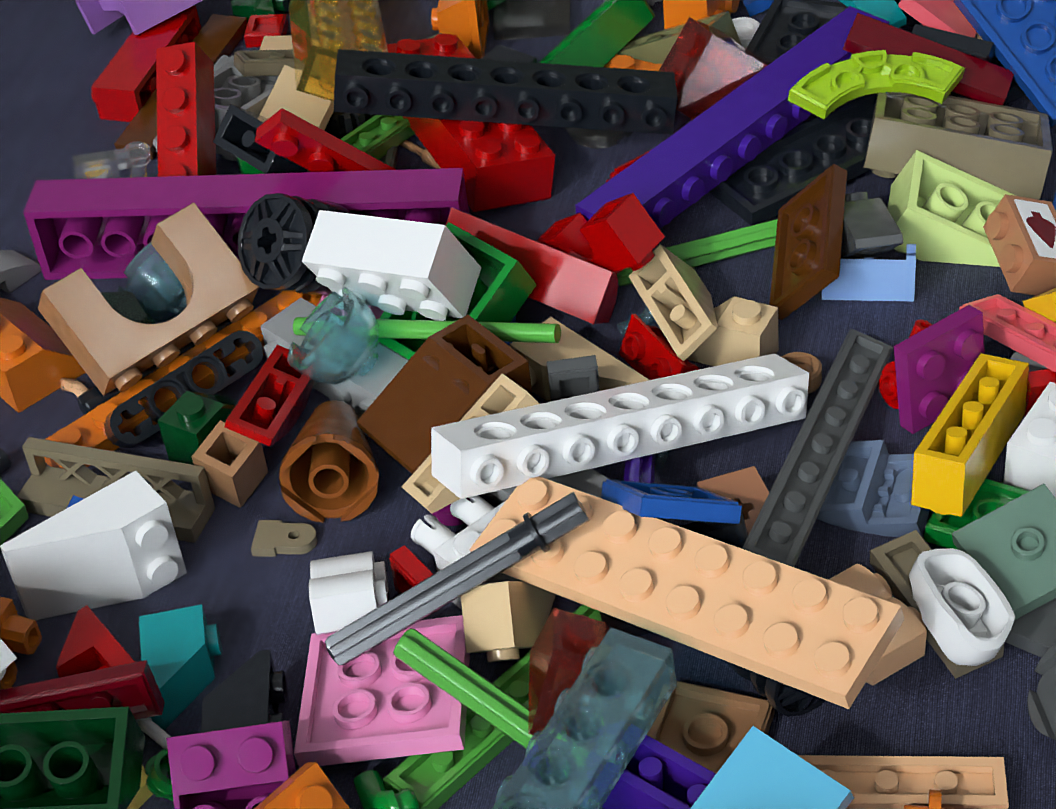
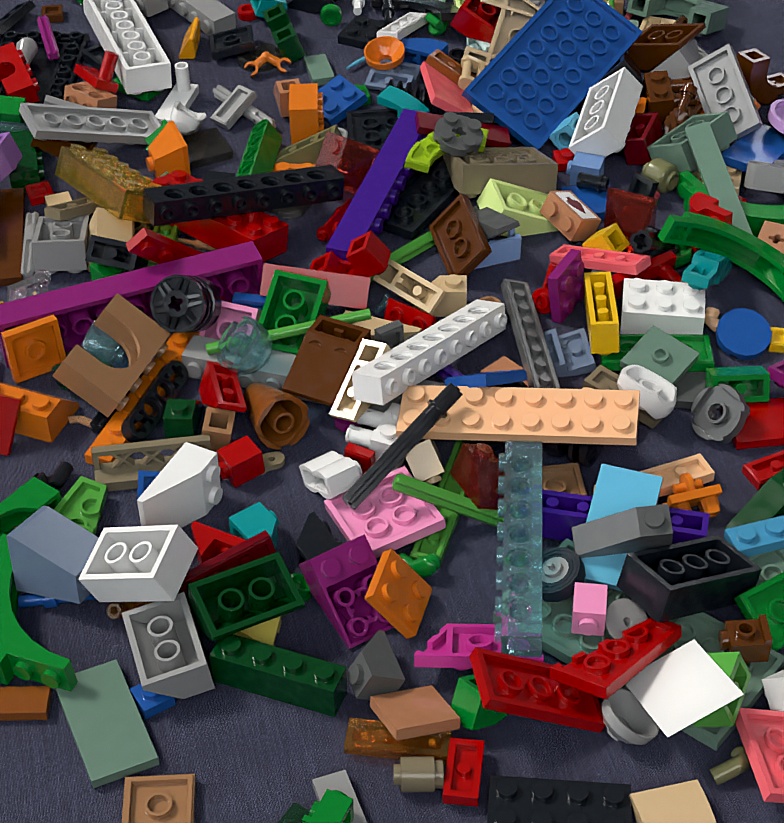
camera: 30 degrees left, 0 degrees up
(65, 245) = (33, 348): none -> orange plate
(185, 111) = (53, 246): red brick -> none
(234, 525) = (240, 461): none -> red brick
(393, 263) = (263, 295): white brick -> none
(903, 46) = (454, 124): none -> dark grey plate

